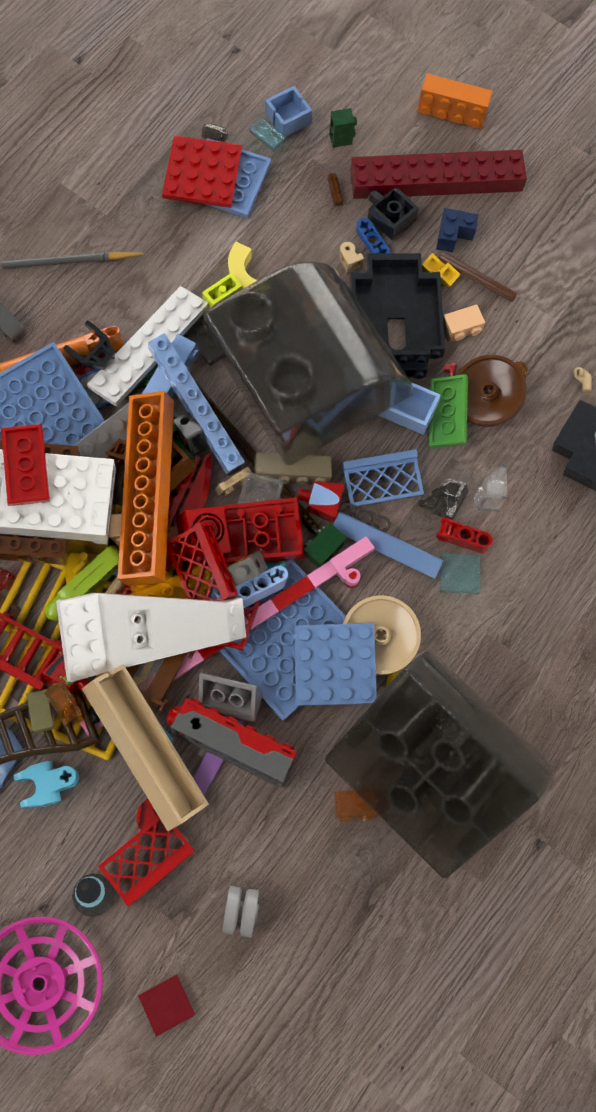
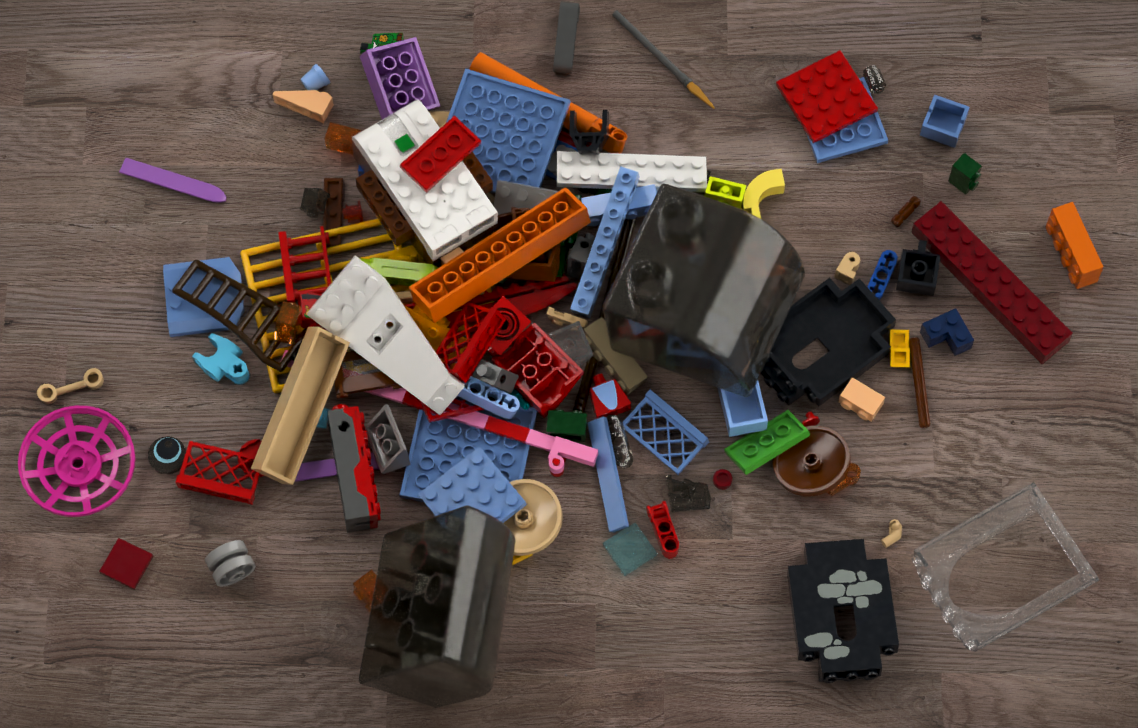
camera: 60 degrees right, 5 degrees down
(40, 712) = (267, 316): olive tile -> none
(267, 134) = (911, 120): clear light blue plate -> none
(451, 465) = (722, 479): none -> dark red tile
(493, 490) = (720, 521): clear slope -> none

